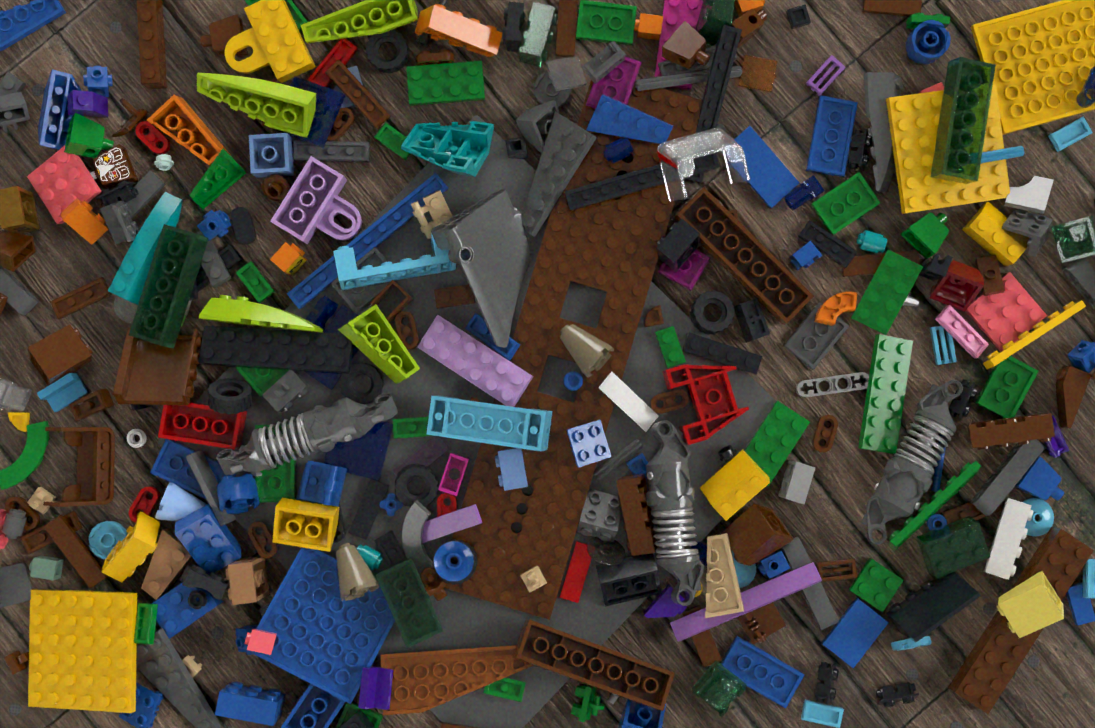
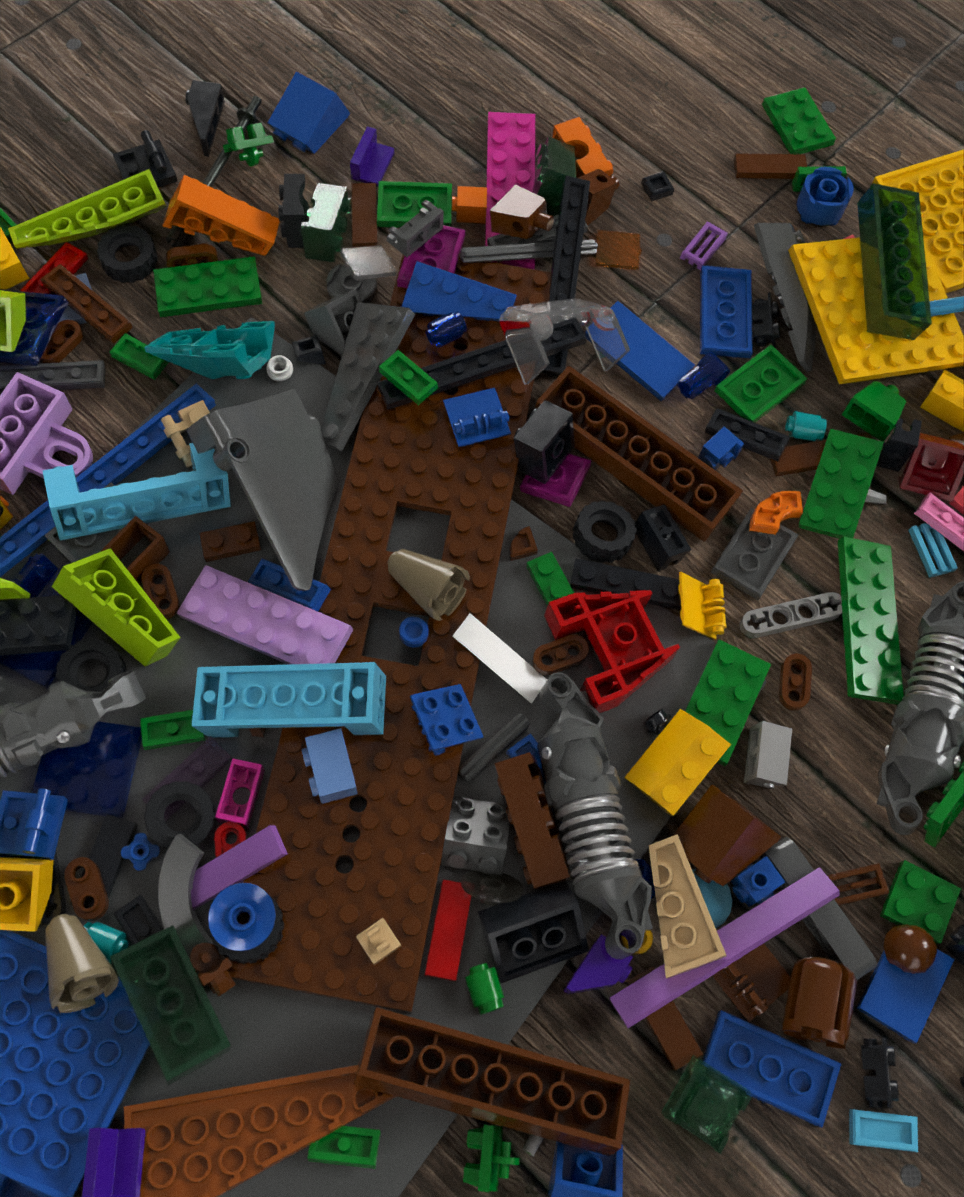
camera: 15 degrees left, 20 degrees down
(358, 525) = (87, 887): none -> reddish brown plate
(495, 156) = (279, 362): none -> white plate
(586, 192) = (408, 377): none -> green plate
(595, 610) = (485, 988): none -> green brick
(632, 223) = (477, 417): none -> blue hinge
(768, 375) = (702, 606): none -> yellow hinge
(797, 640) = (820, 1002): none -> reddish brown cylinder
(861, 614) = (910, 948): none -> reddish brown hair

